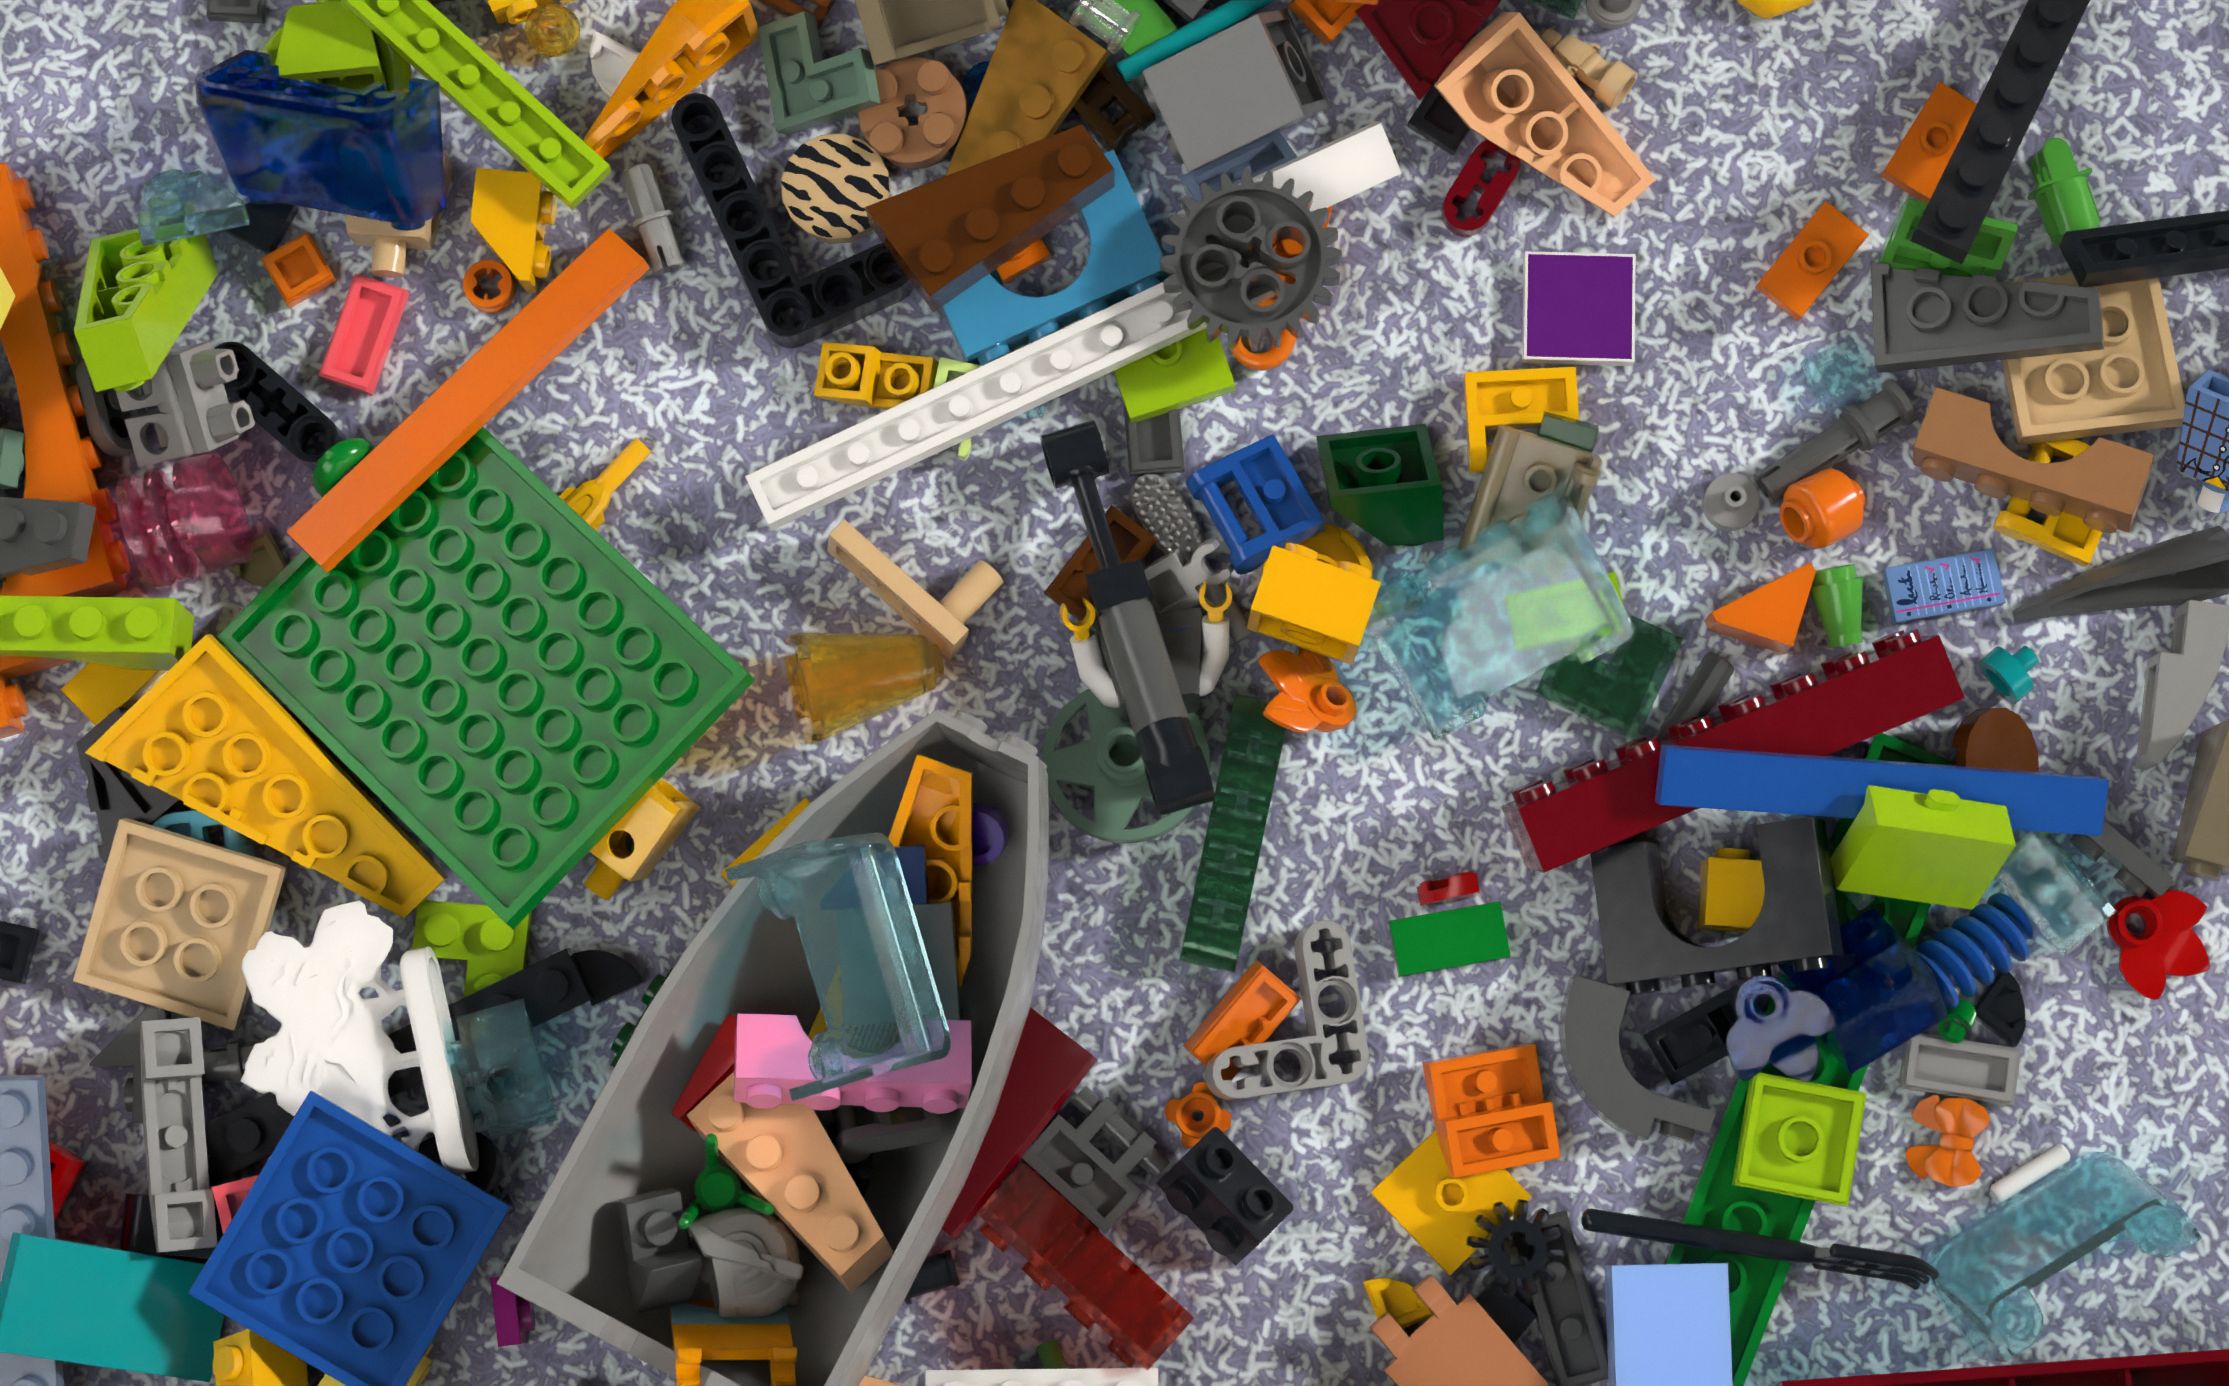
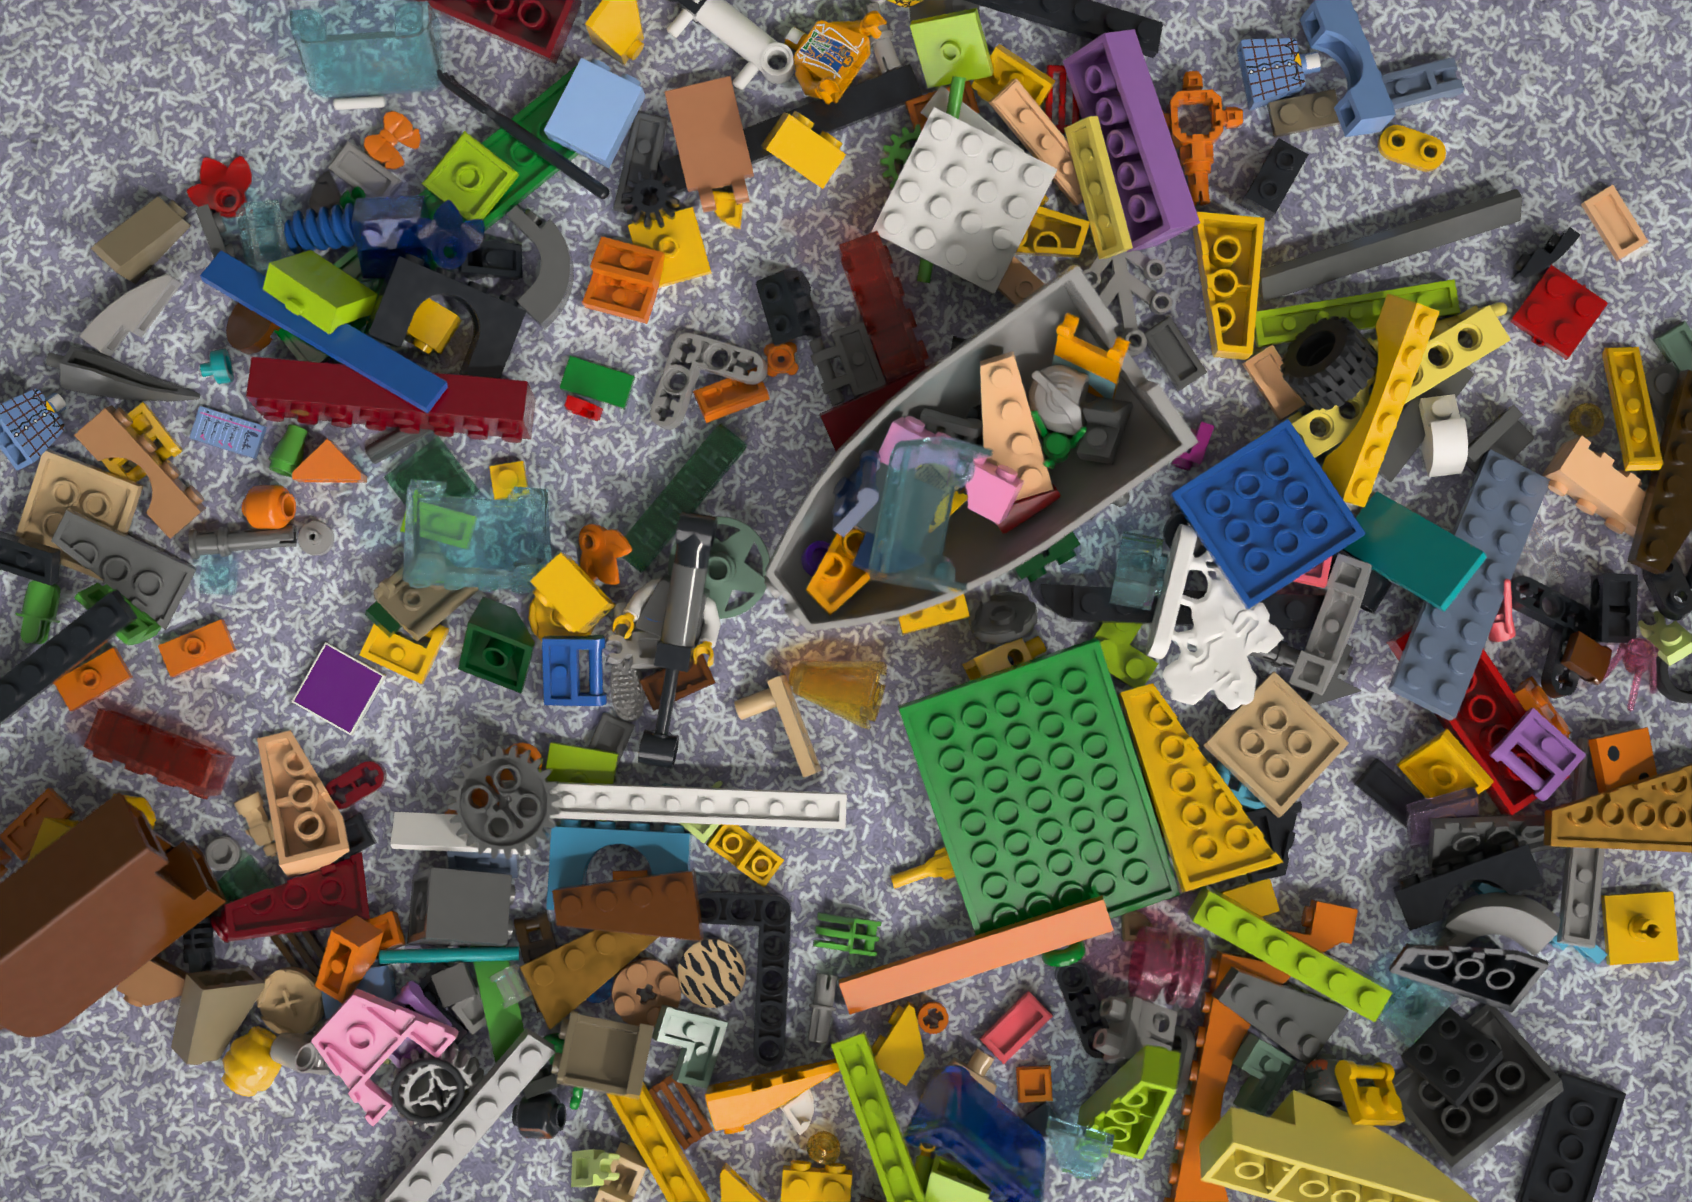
camera: 150 degrees left, 5 degrees up
(670, 897) = (1003, 618): none -> dark grey tile
(680, 333) = (870, 936): none -> bright green arm
(970, 949) = (856, 493): none -> dark blue plate
(1501, 730) = (506, 477): none -> yellow plate
(1778, 85) = (158, 753): none -> clear red wedge

